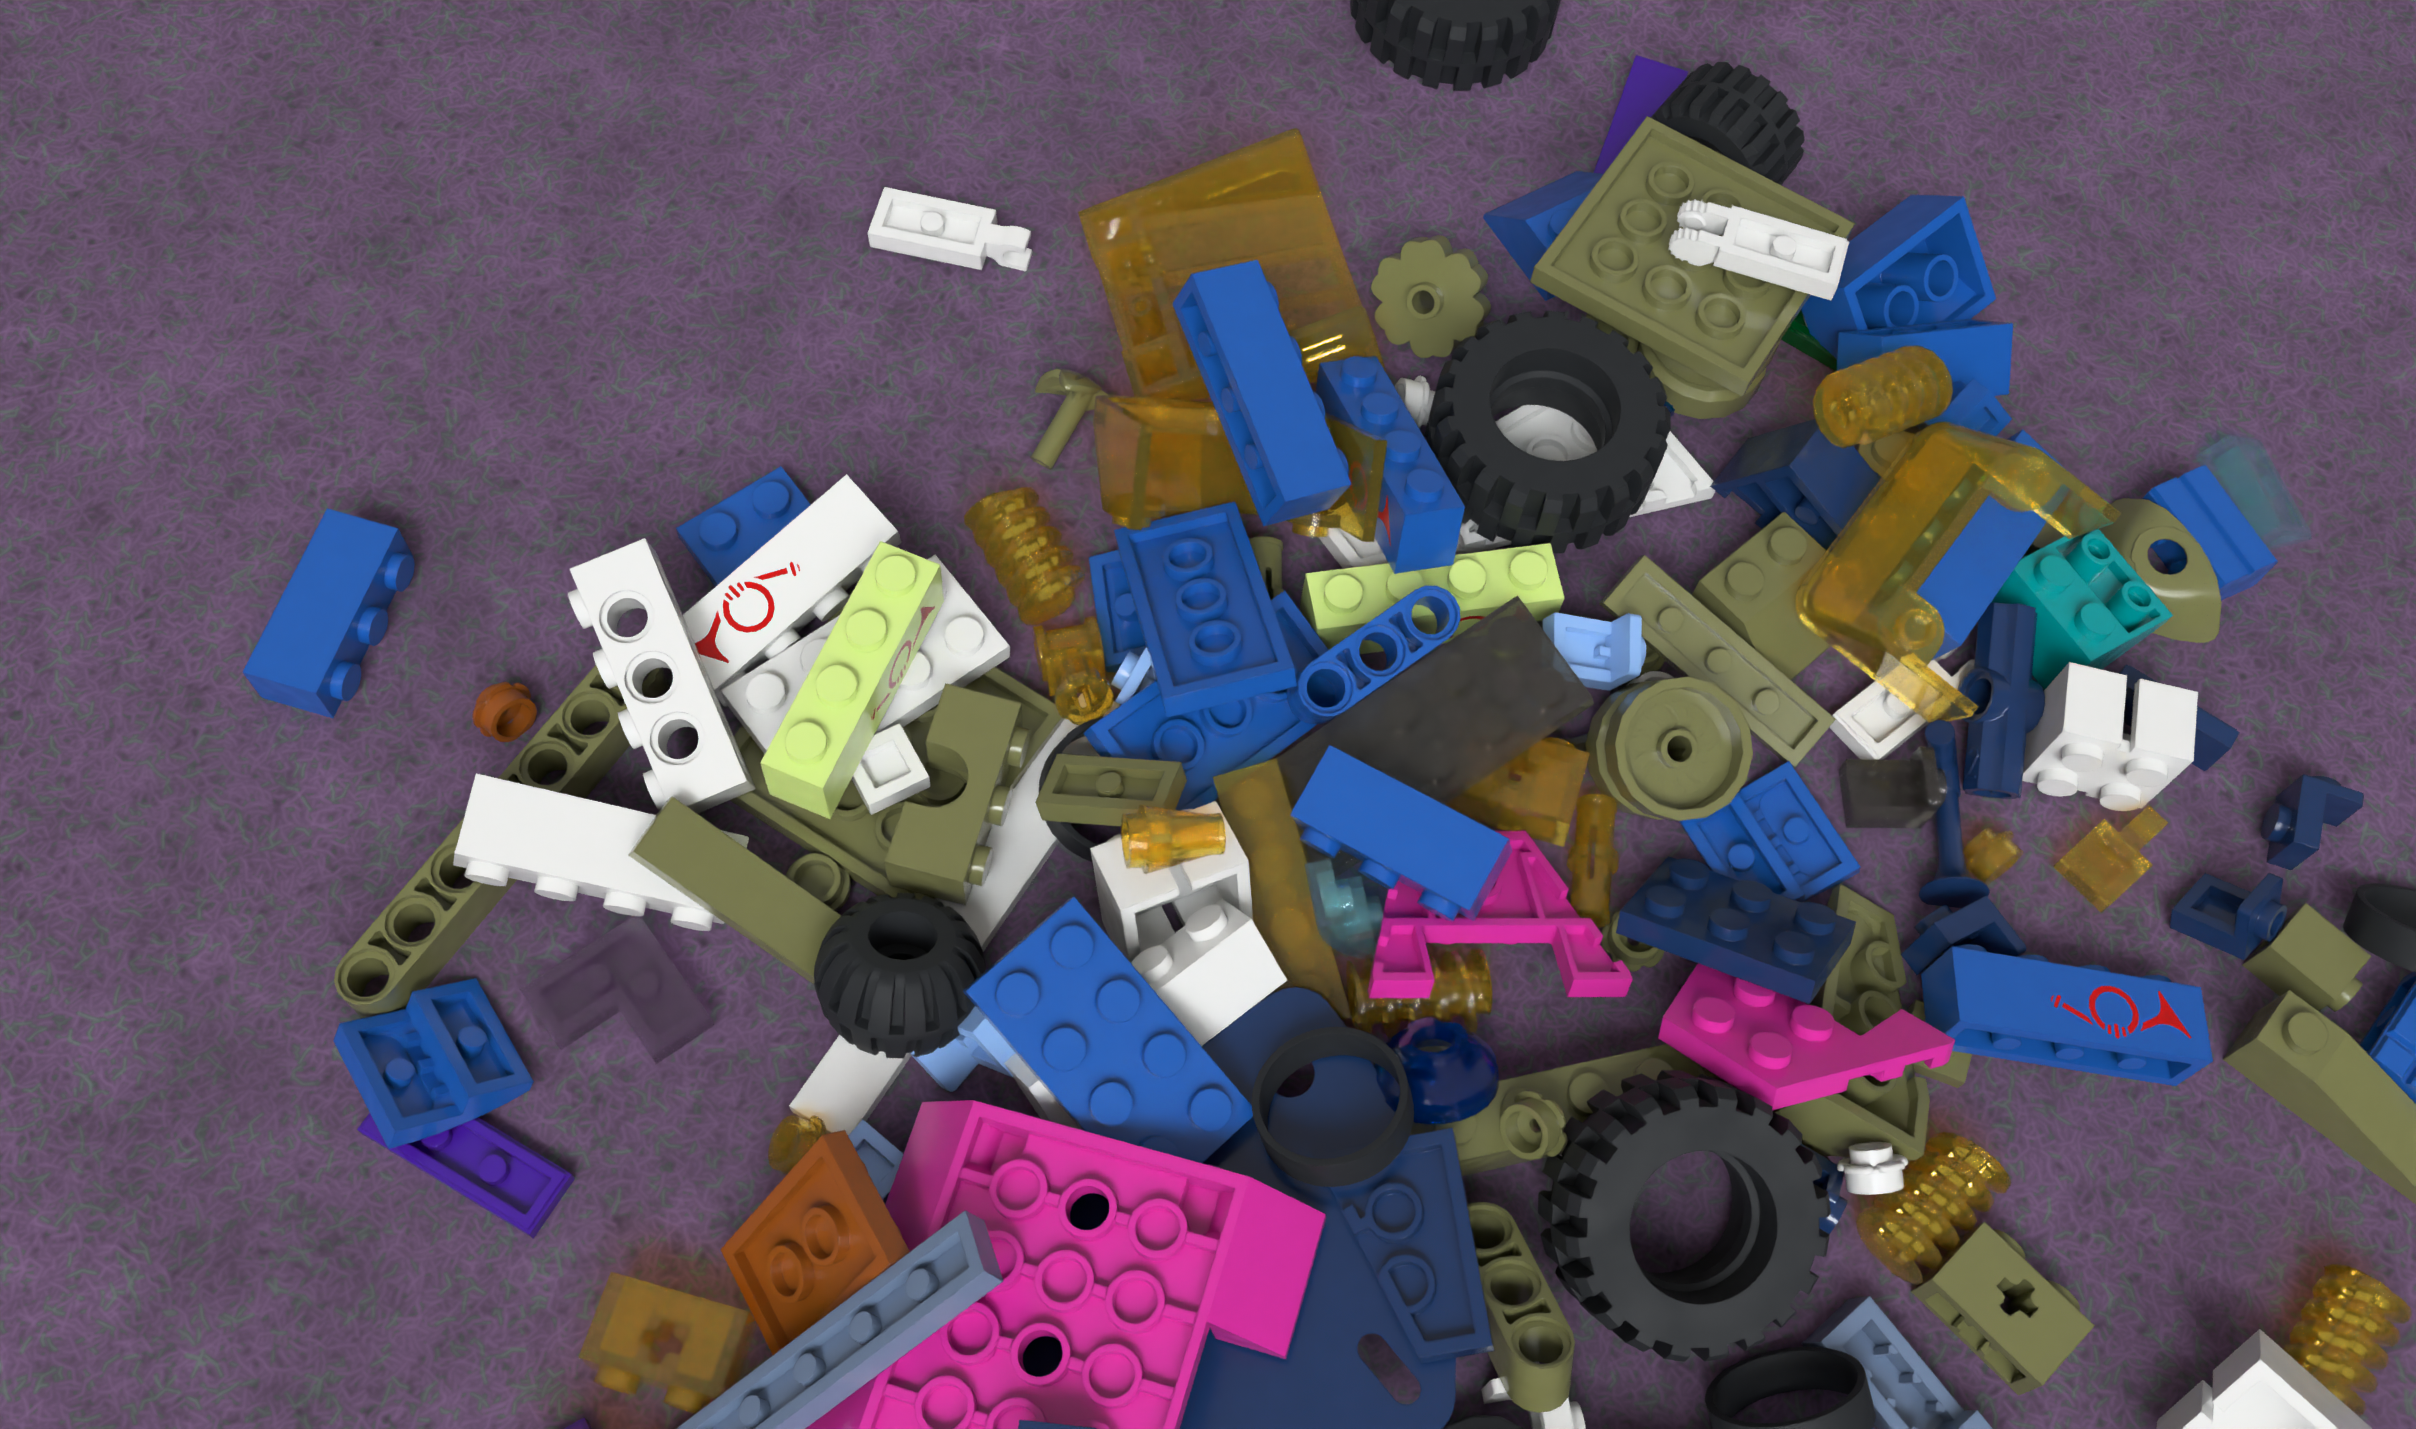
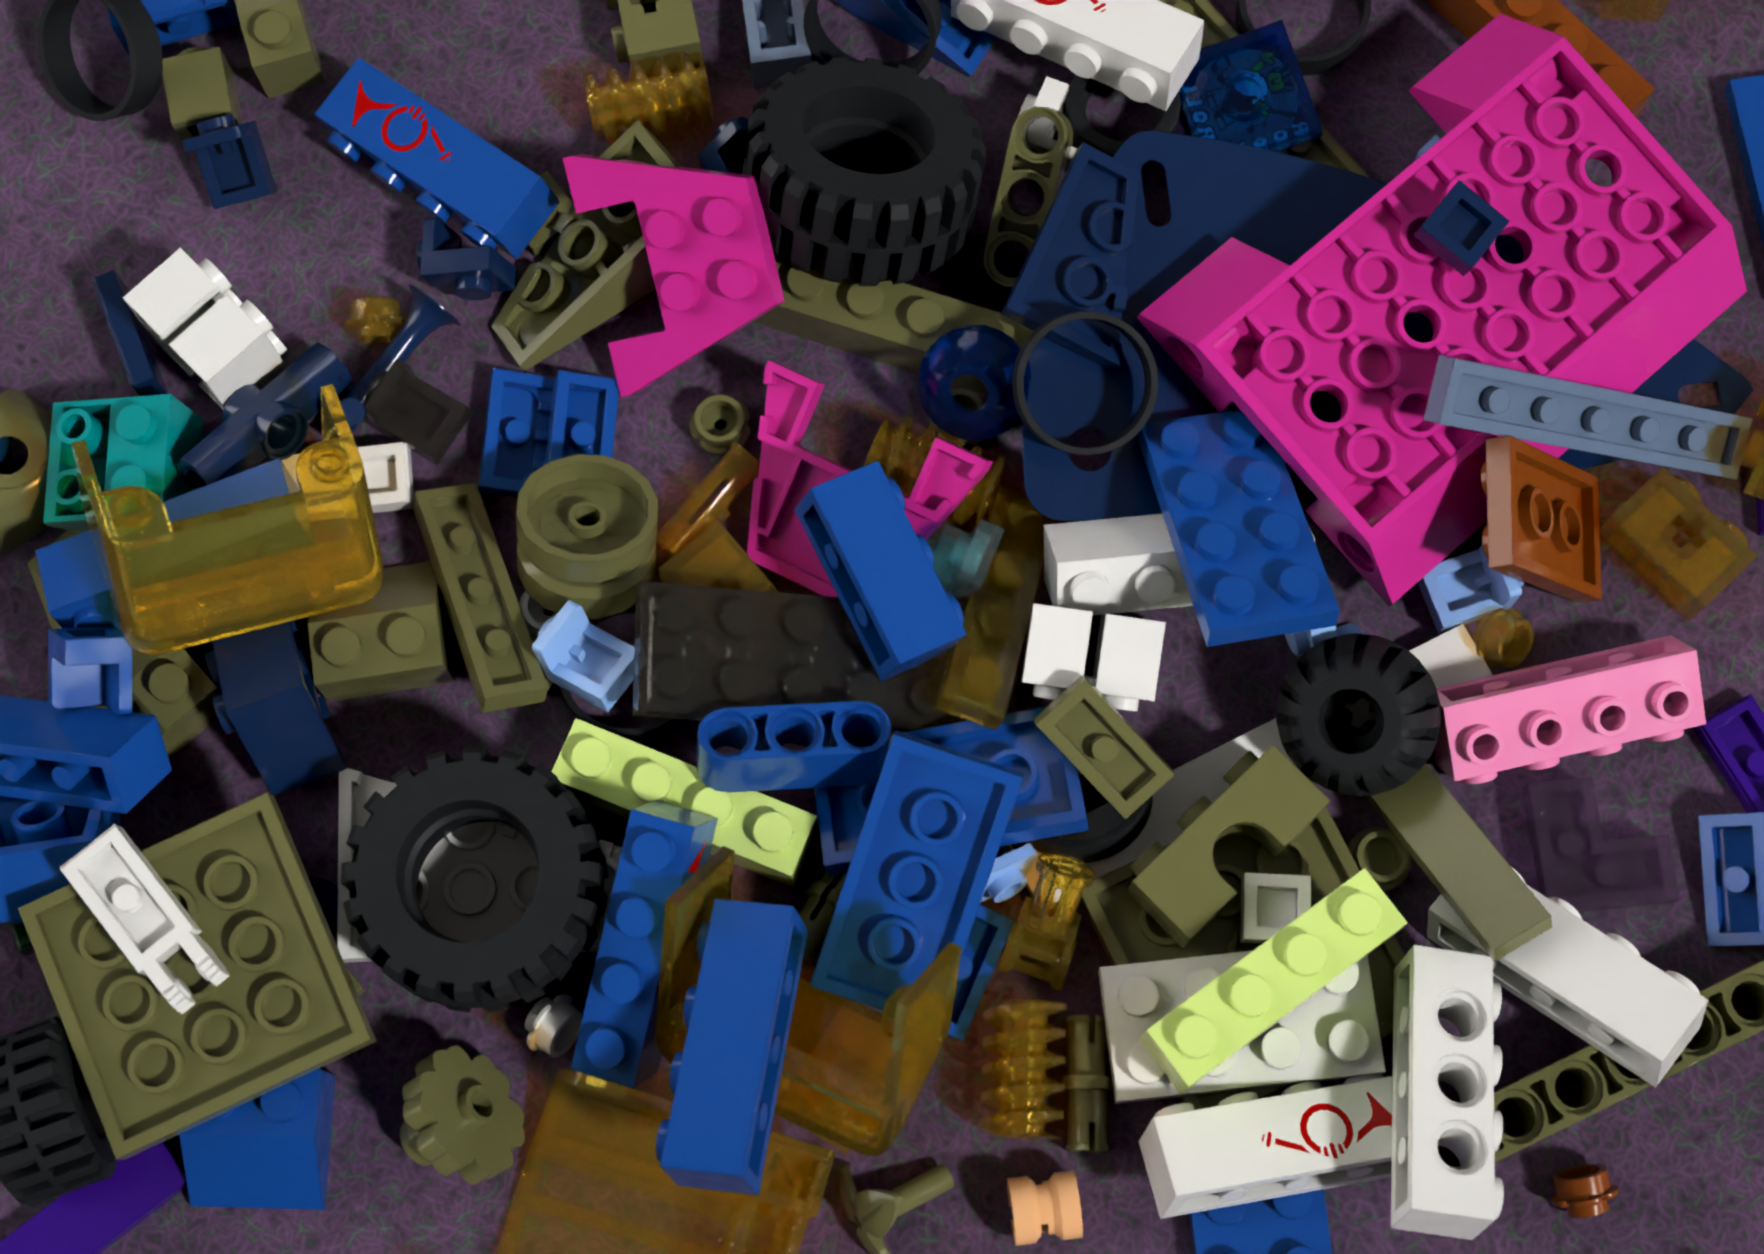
camera: 140 degrees left, 10 degrees up
(707, 1103) = (1568, 709): none -> bright pink brick
(948, 470) = (1045, 1208): none -> light nougat wheel
(971, 573) = (1086, 1084): none -> olive pin
(1168, 837) = (1092, 650): clear yellow cone -> none
(1522, 1133) = (935, 284): olive plate -> none
(1737, 928) = (647, 359): dark blue plate -> none
(1873, 1168) = (685, 130): white plate -> none
(1882, 396) = (169, 689): clear yellow piece -> none
(2110, 860) = (285, 261): clear yellow plate -> none
(2298, 814) = (103, 200): dark blue bracket -> none

